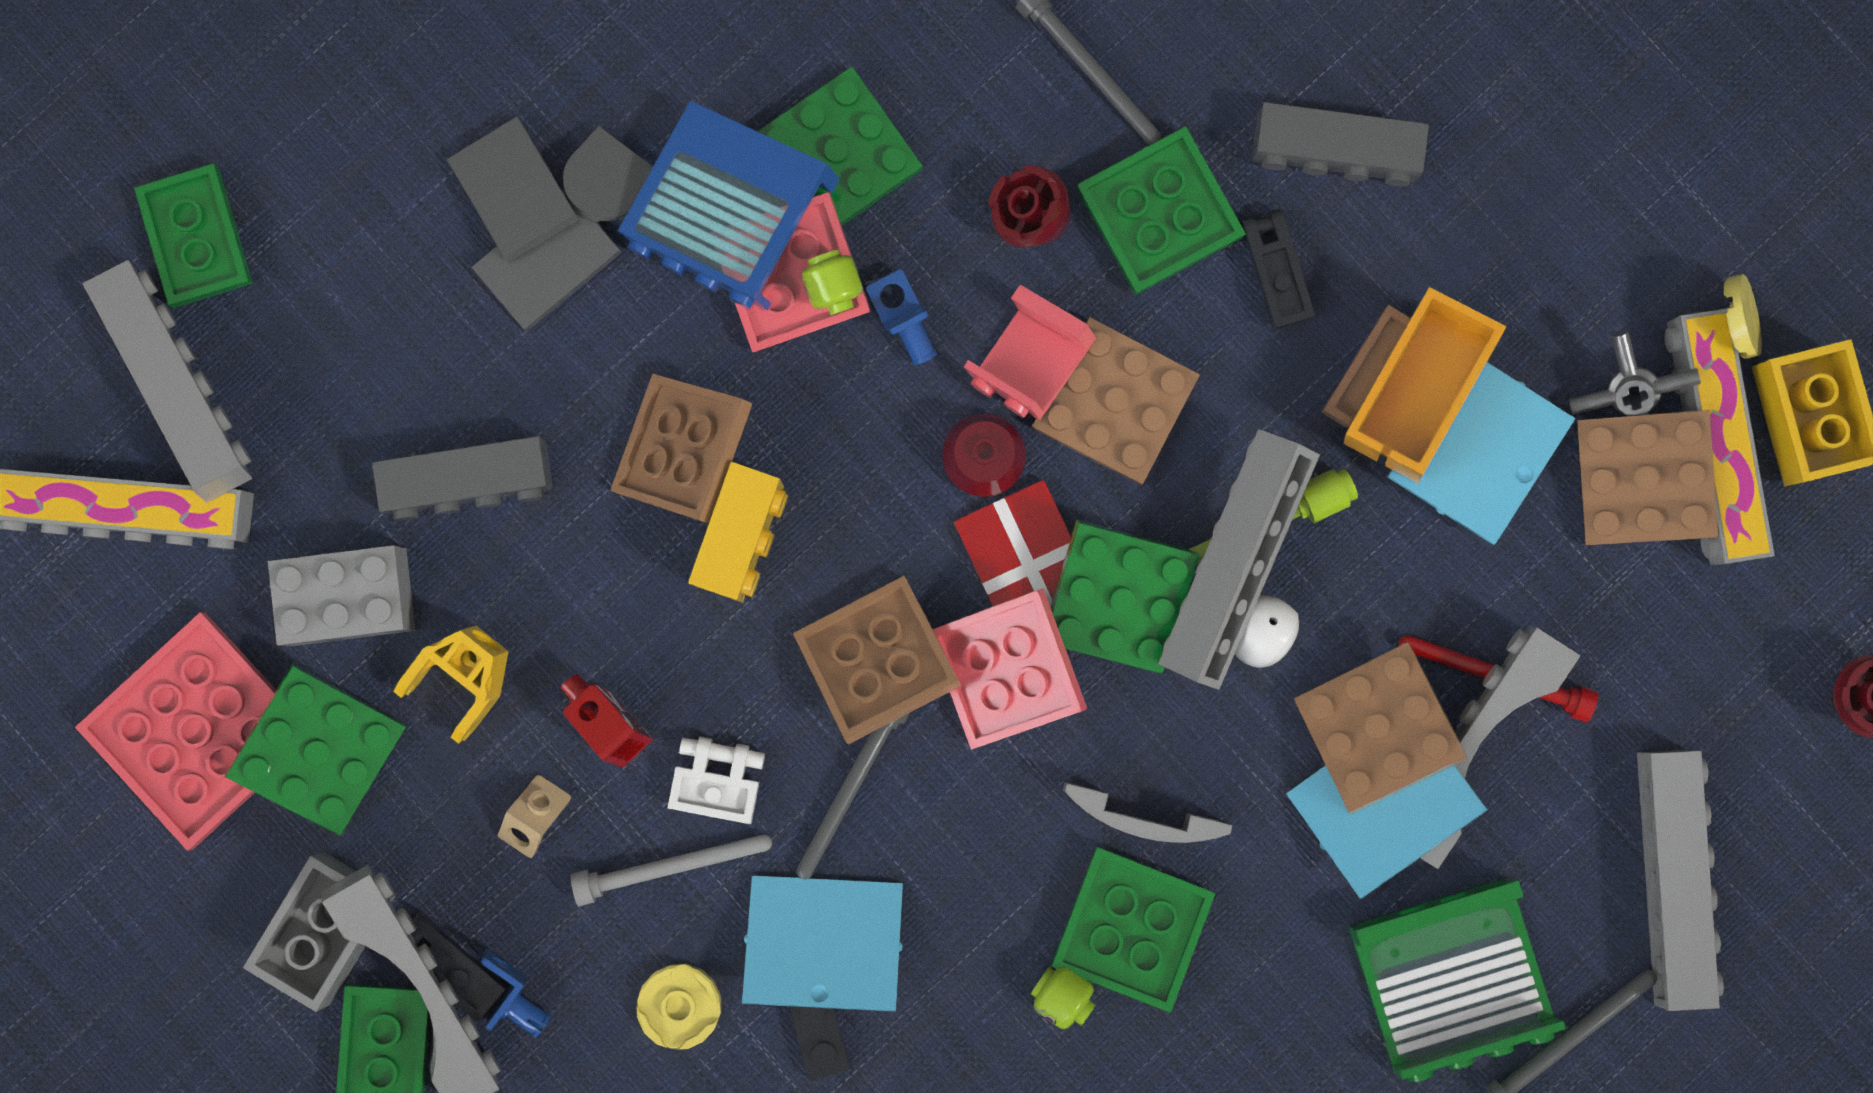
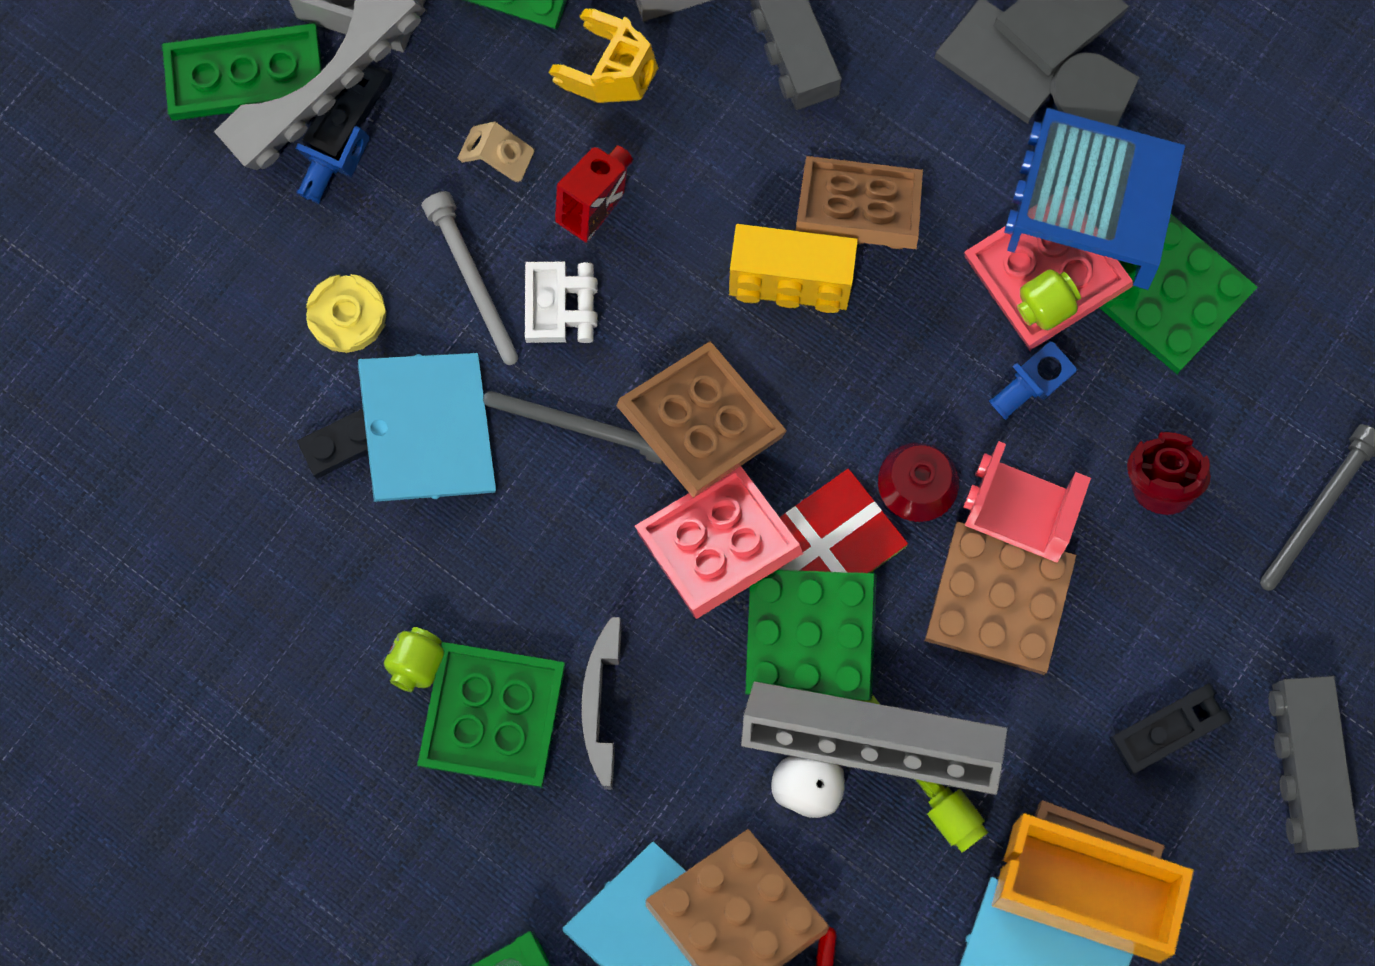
camera: 80 degrees right, 10 degrees down
(1160, 210) = (1198, 603): green plate -> none

